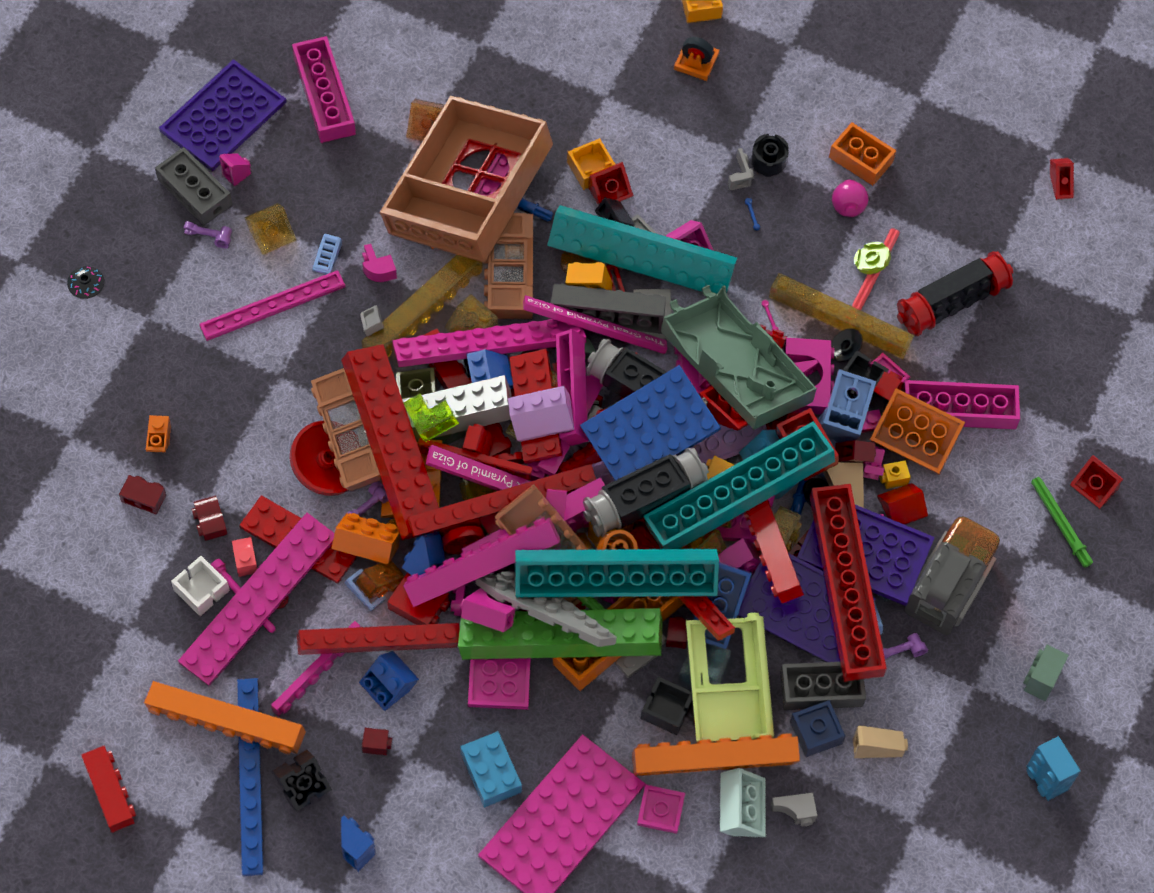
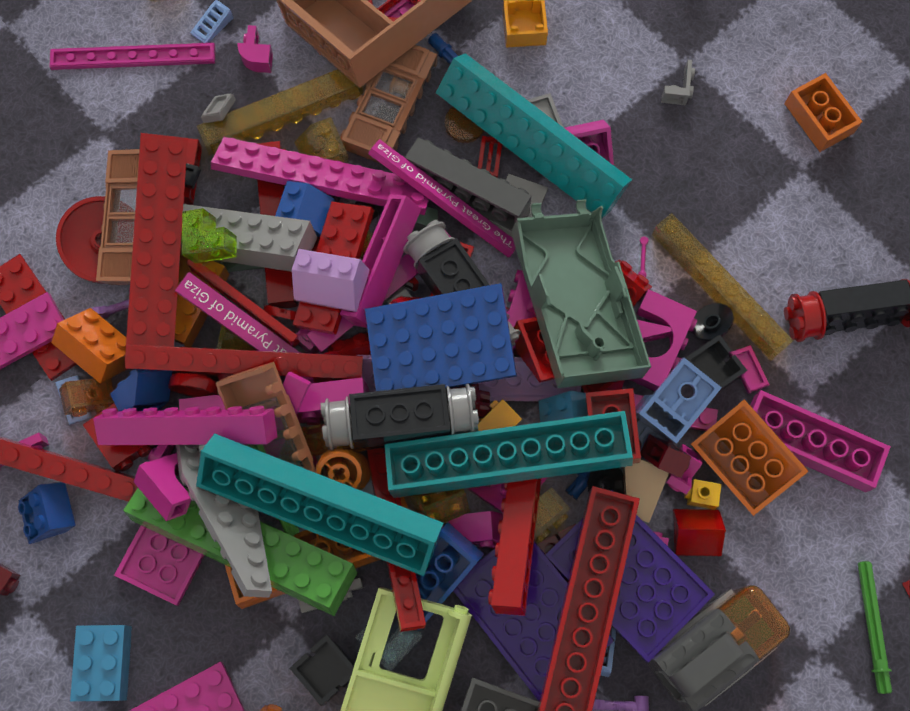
camera: 25 degrees right, 10 degrees up
(416, 382) = (228, 194): olive brick -> none
(478, 439) = (255, 283): red brick -> none
(588, 275) = (461, 143): light orange container -> none
(610, 183) = (534, 52): red slope -> none
(614, 211) = (525, 82): black panel -> none
(677, 633) = (375, 580): dark red brick -> none
(748, 201) = (675, 121): blue hinge -> none
(769, 154) = (720, 78): black brick -> none
(850, 198) = (787, 157): dark pink brick -> none
(871, 278) = (782, 247): coral axle -> none
(872, 258) = (784, 233): lime tile -> none
(888, 384) = (738, 389): red brick -> none

